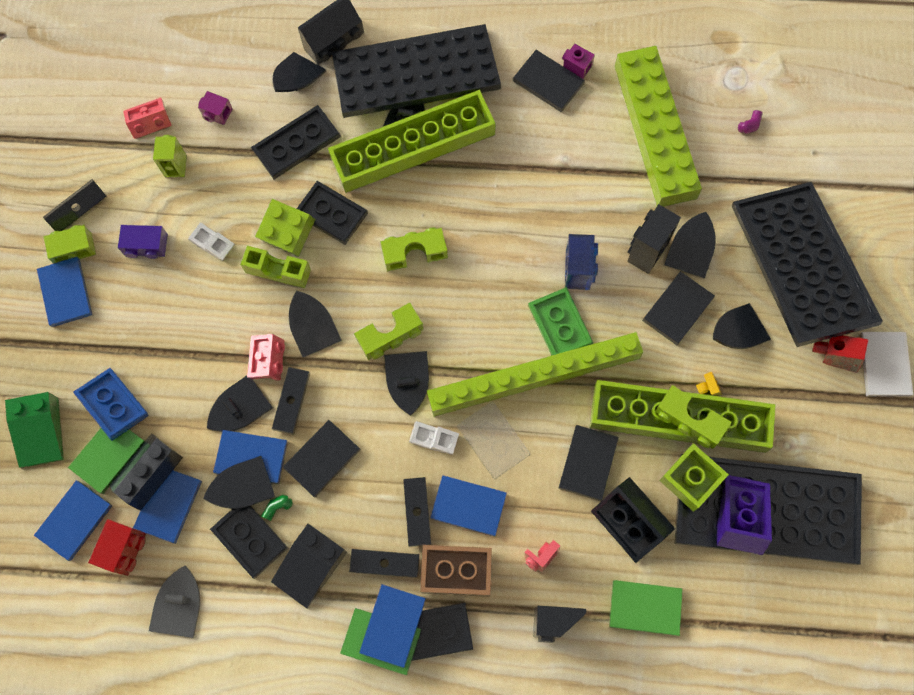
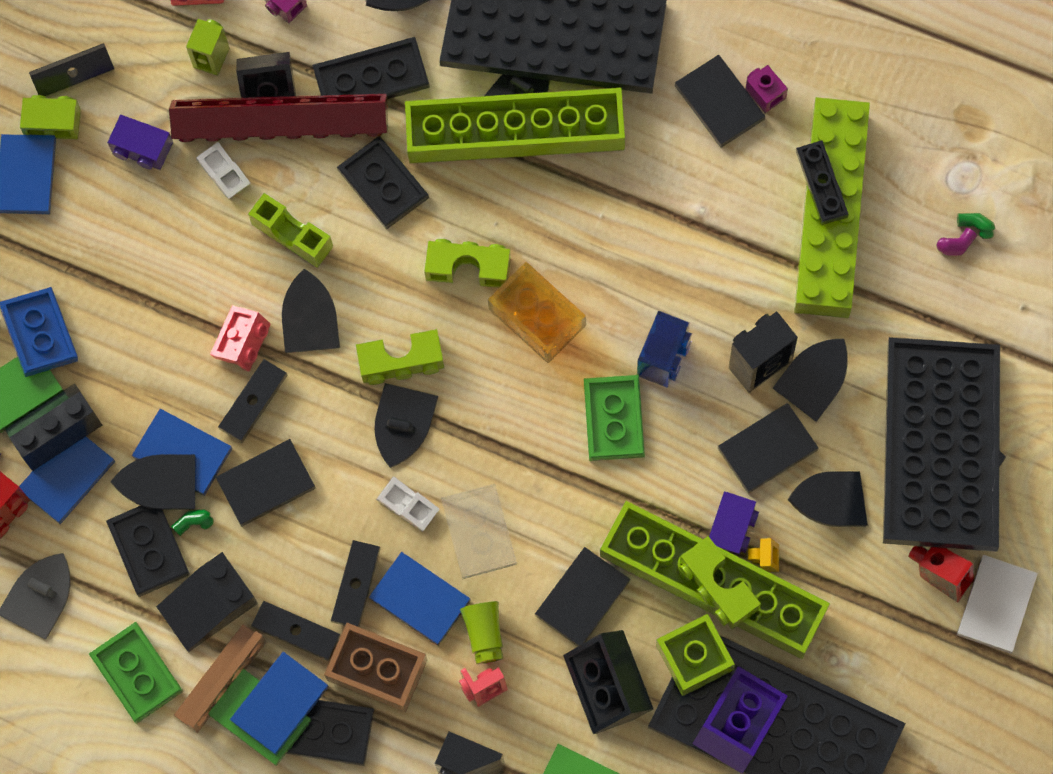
camera: 20 degrees right, 0 degrees up
(222, 171) = (266, 76): none -> black slope
(237, 190) = (278, 117): none -> dark red brick
(238, 406) = (187, 386): black shield -> none
(272, 639) = (136, 672): none -> bright green tile
(285, 227) = (318, 184): lime brick -> none
(338, 621) = (224, 670): none -> medium nougat fence
(477, 266) = (537, 312): none -> clear yellow brick
(527, 514) = (484, 631): none -> lime plant
(534, 374) = (556, 468): lime brick -> none
(653, 116) = (825, 196): none -> black tile
(676, 369) = (732, 523): none -> dark purple brick
(767, 105) = (979, 221): none -> green arm

